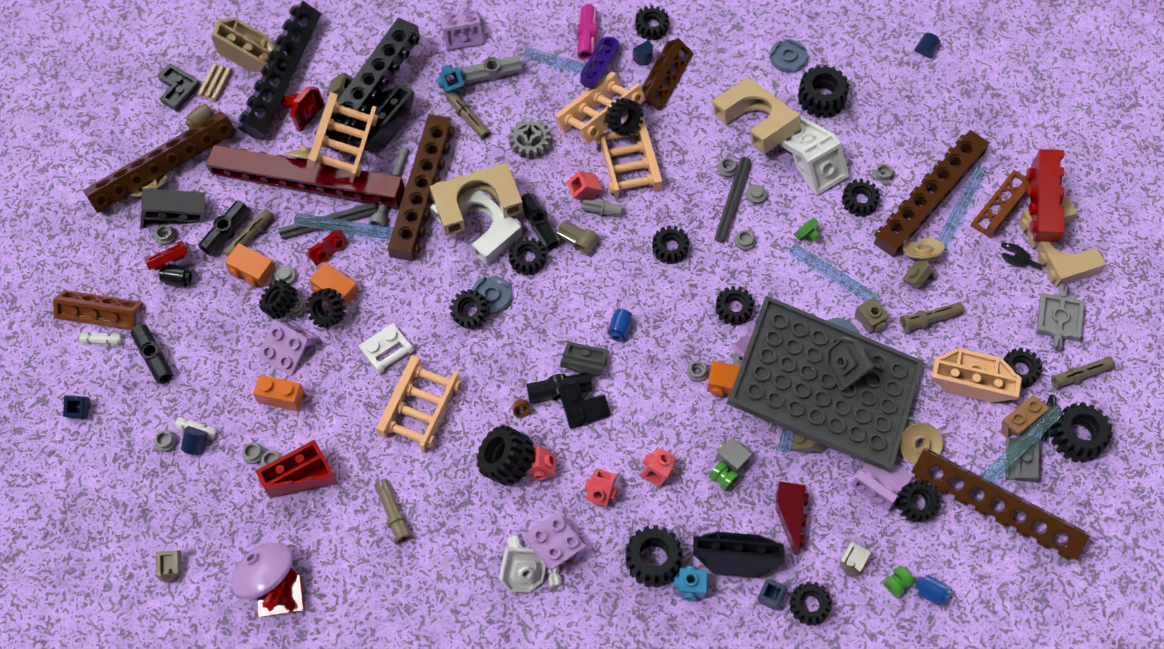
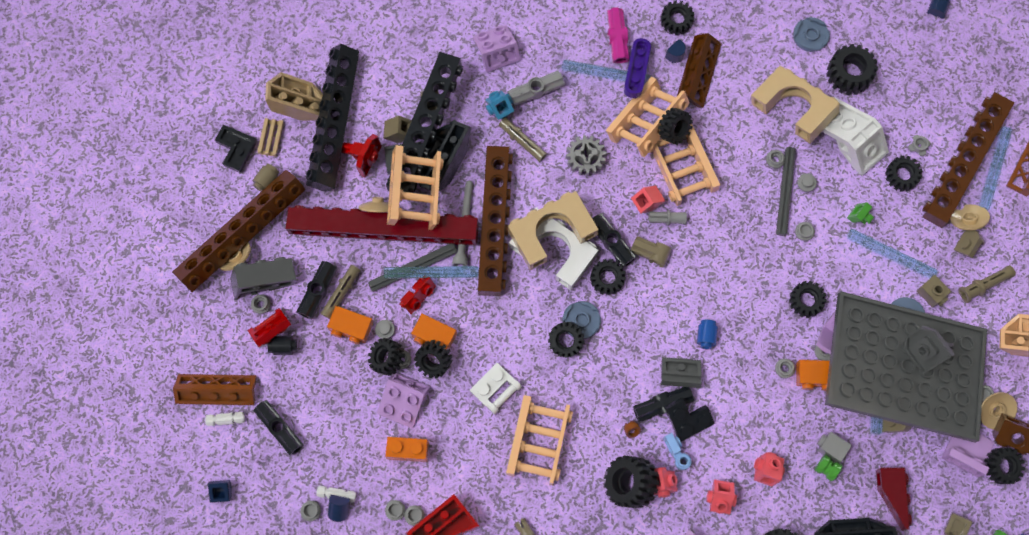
camera: 10 degrees left, 10 degrees up
(561, 428) = (674, 444): none -> light blue plate
(670, 234) = (743, 237): black tyre -> none

